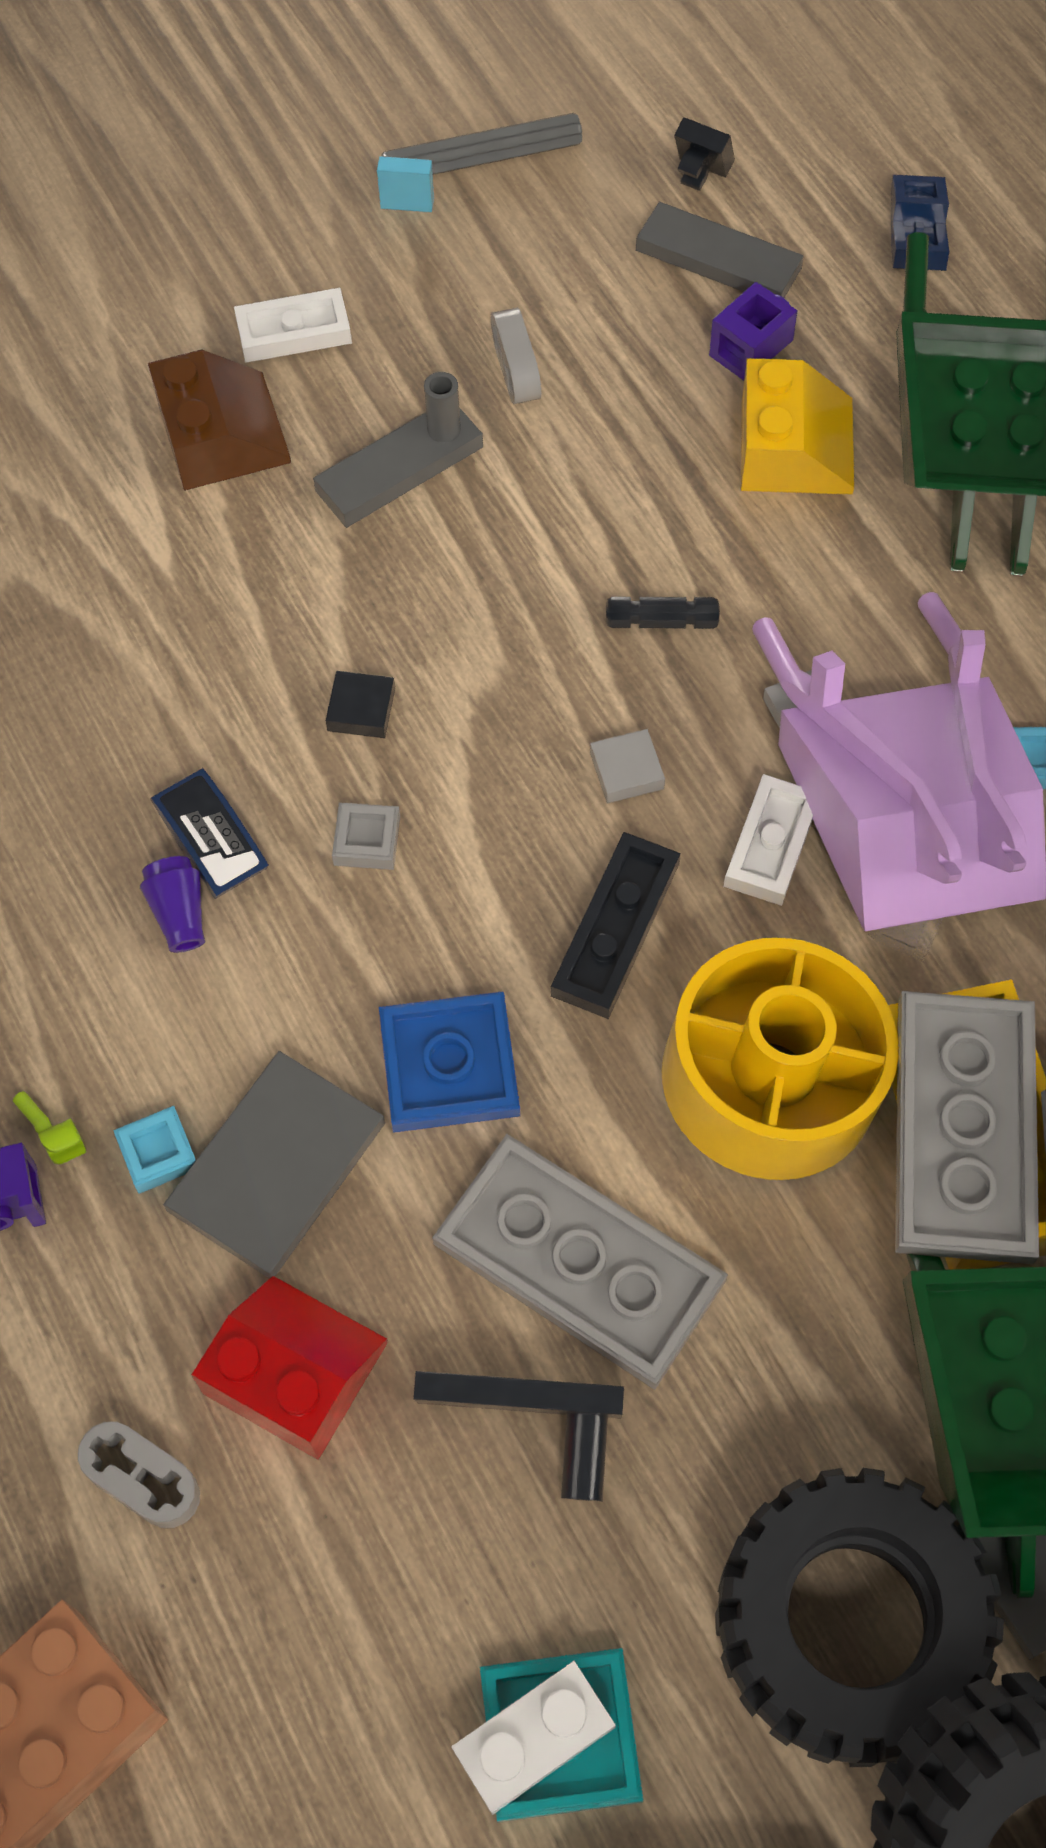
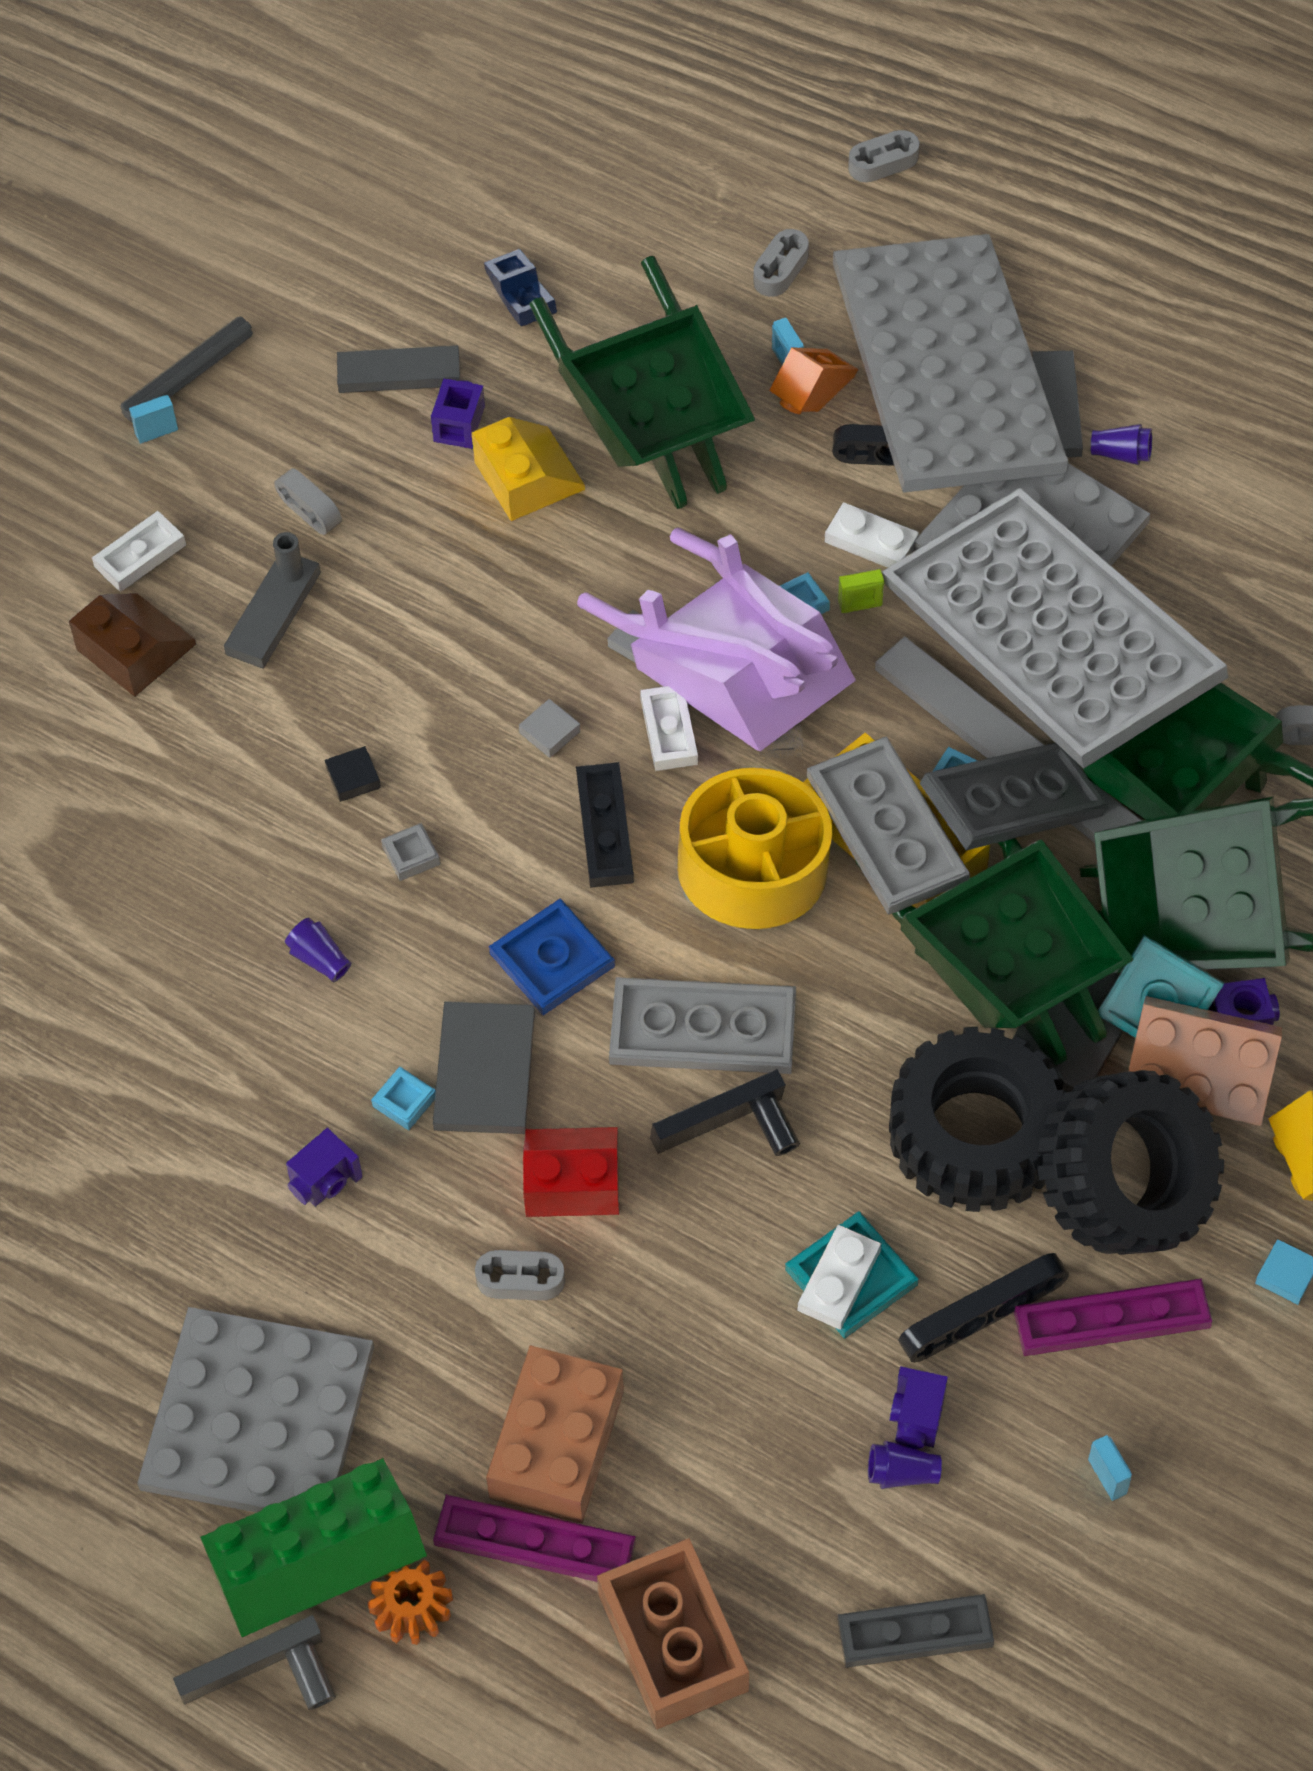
camera: 30 degrees left, 5 degrees down
(61, 1140) = (341, 1123): lime hand -> none
(209, 832) = (306, 895): slope -> none
(663, 612) = (511, 622): black axle -> none
(701, 152) = (345, 304): black tile -> none

